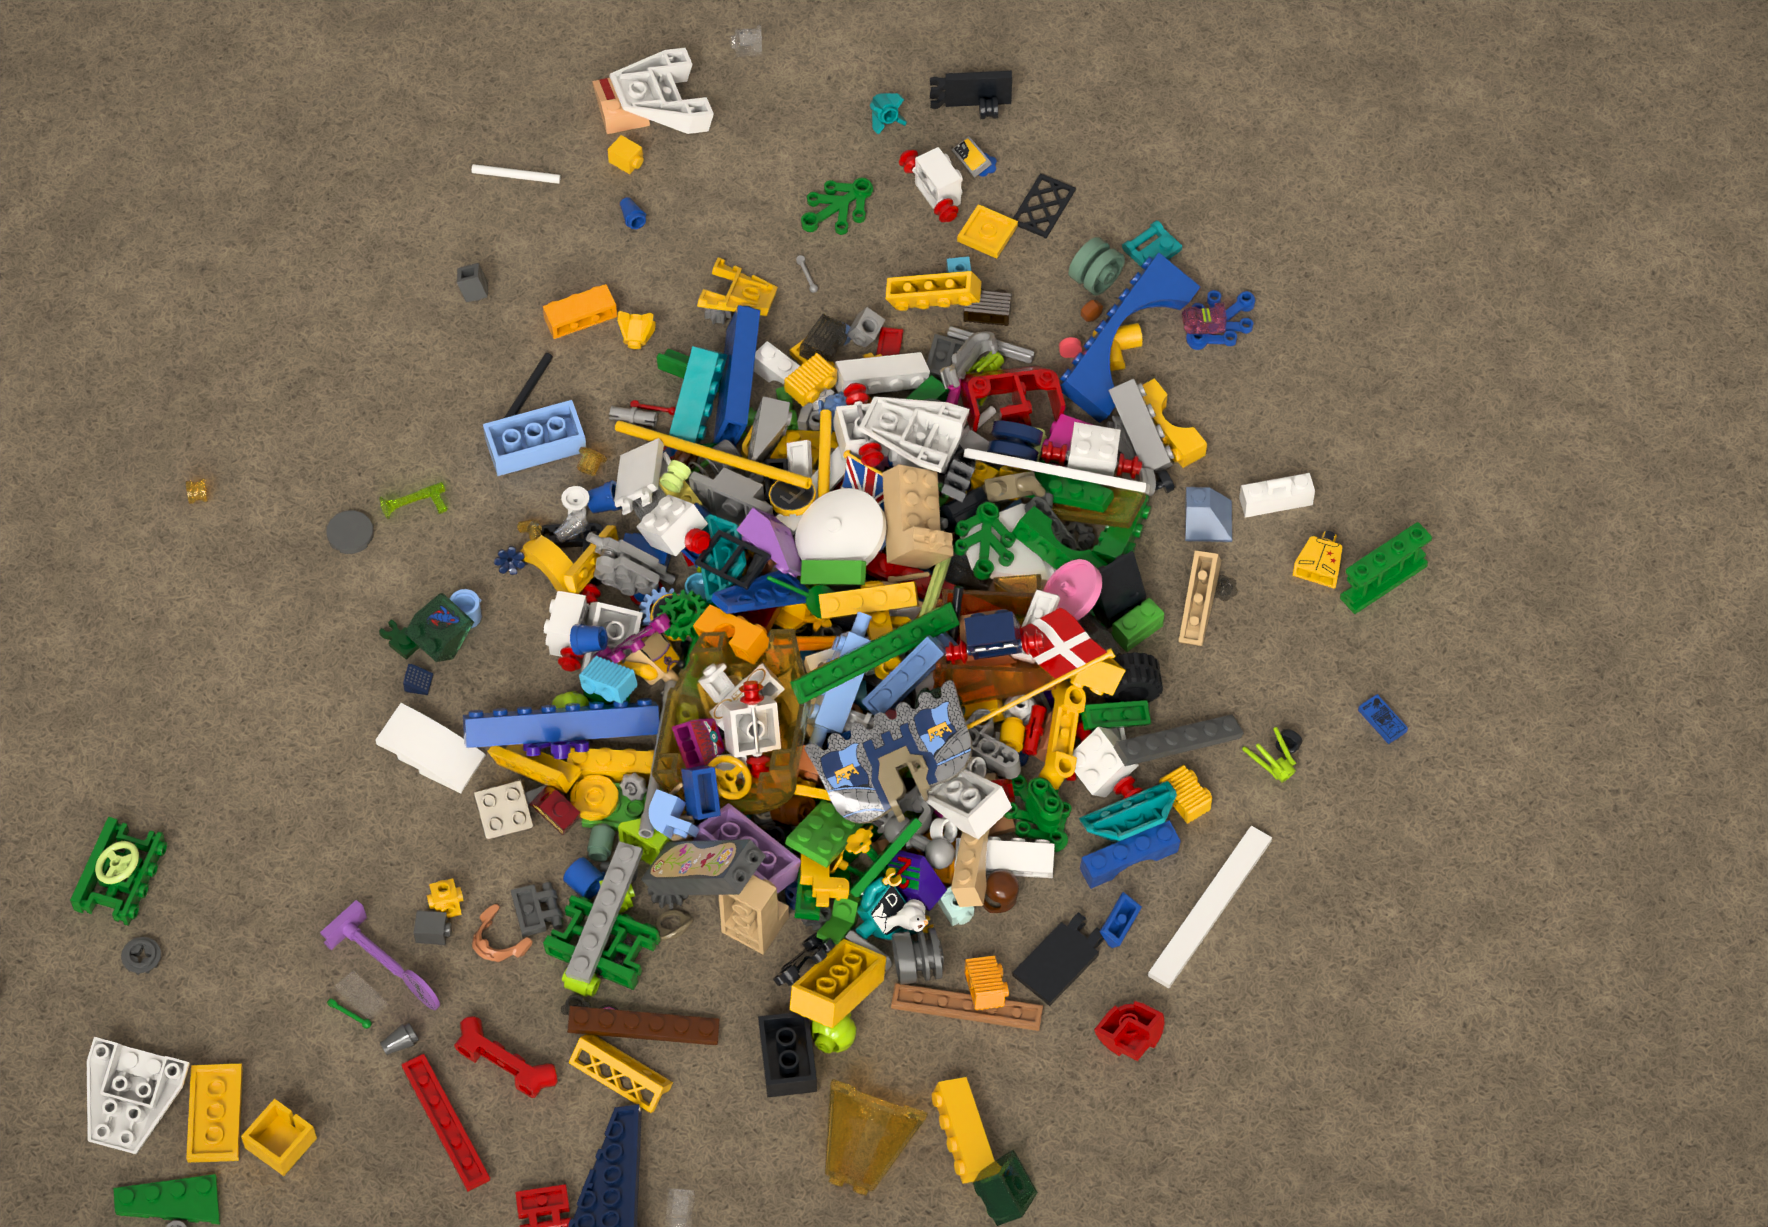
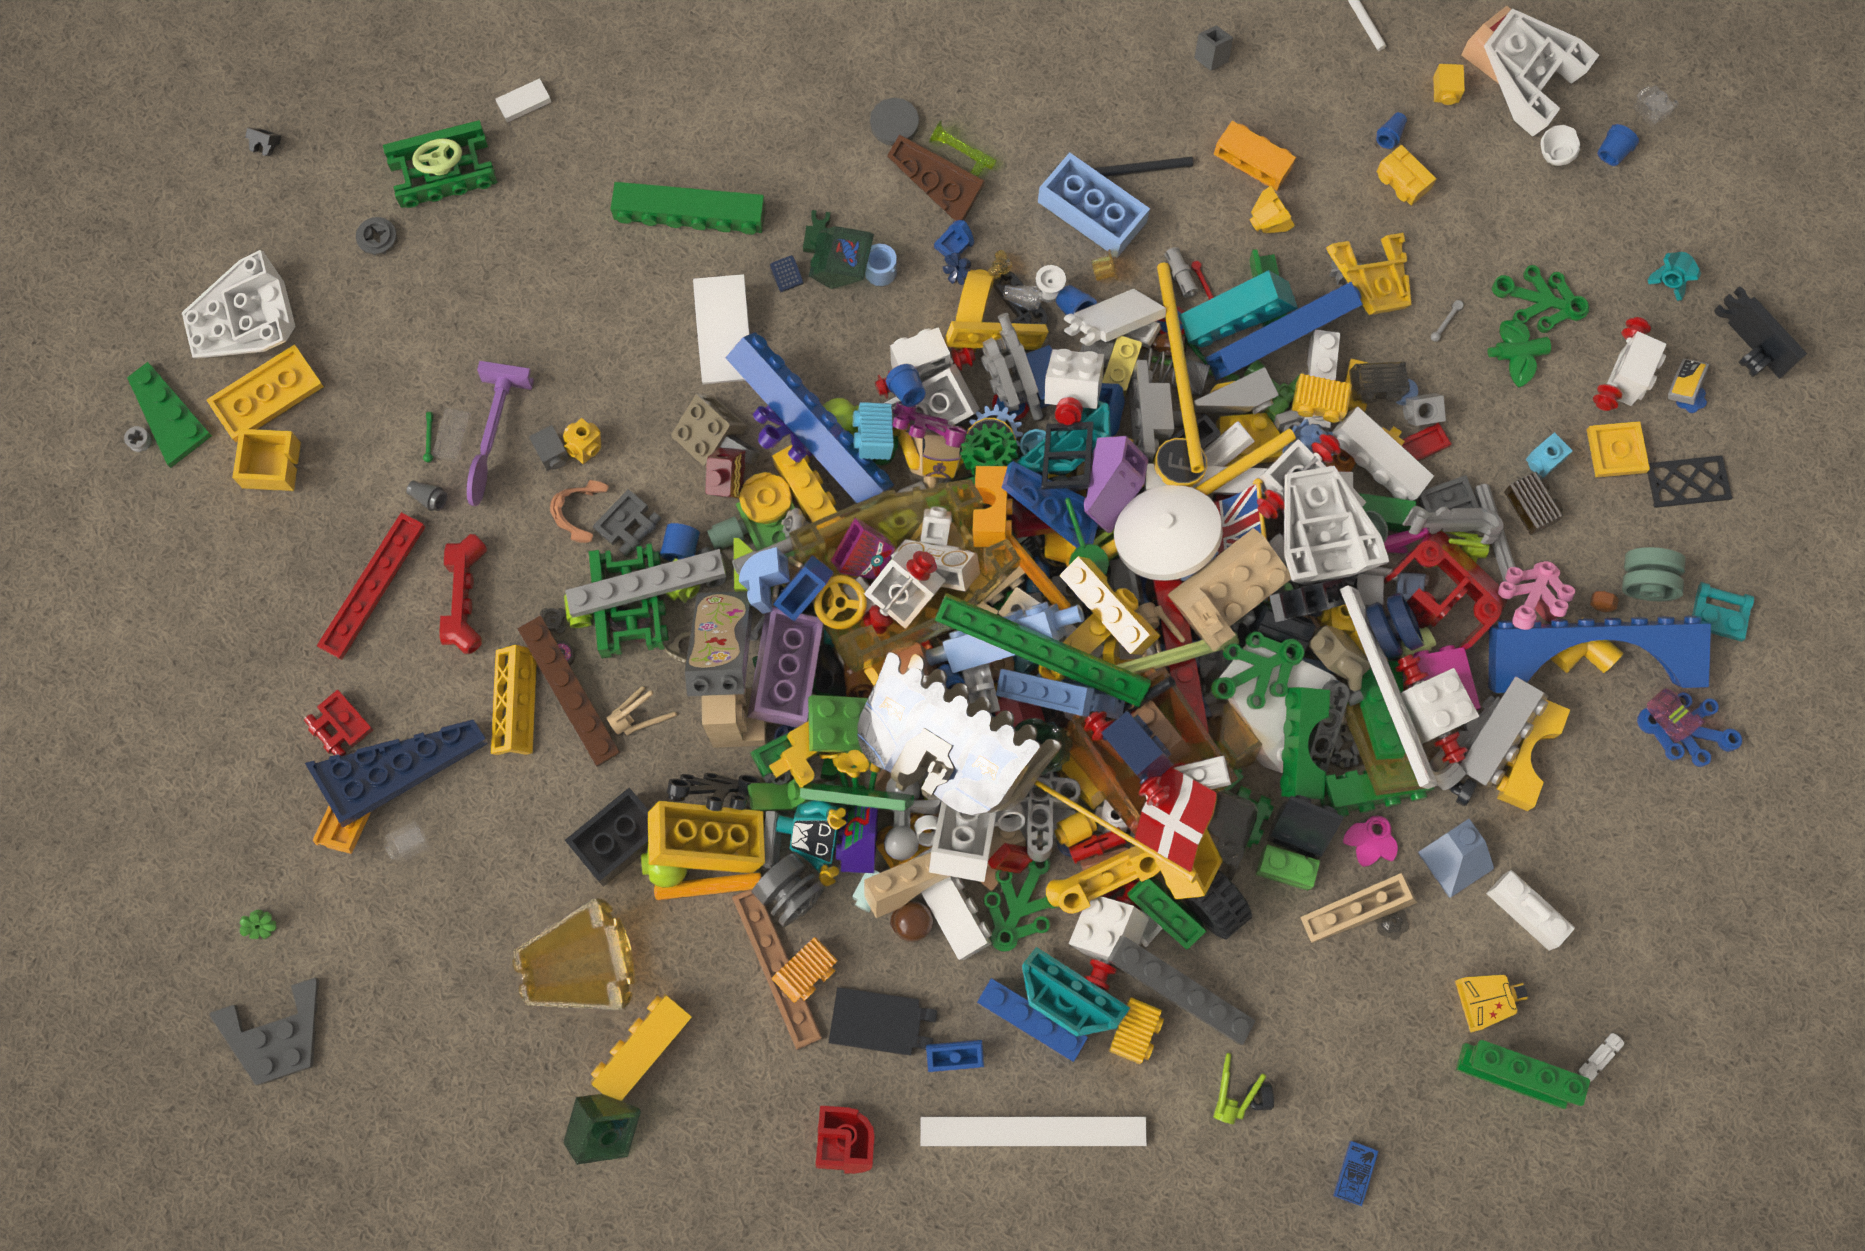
camera: 55 degrees right, 15 degrees up
(109, 782) = (523, 100): none -> white tile
(306, 714) = (688, 207): none -> green brick
(426, 528) = (941, 180): none -> reddish brown wing
(483, 548) = (955, 239): none -> blue tile
(540, 768) = (752, 454): yellow panel -> none
(675, 226) = (1405, 175): none -> yellow brick
(675, 476) = (1127, 347): yellowish green wheel -> none
(695, 1002) = (621, 718): none -> tan plant
(732, 117) = (1560, 145): none -> white hair
(760, 83) = (1617, 144): none -> blue piece
(833, 572) = (1117, 554): bright green tile -> none
(866, 242) = (1519, 351): none -> green plant
(872, 1015) = (708, 886): none -> light orange axle
(910, 917) = (818, 860): white animal -> none
(933, 290) = (1508, 443): yellow brick -> none
(987, 419) = (1409, 583): none -> sand blue tile
(1044, 805) = (1025, 905): green brick -> none
(1046, 333) = (1544, 574): none -> bright pink plant
(1077, 585) = (1263, 788): bright pink piece -> none
(1157, 565) = (1371, 845): none -> dark pink plate
(1407, 515) = (1601, 1056): none -> white axle

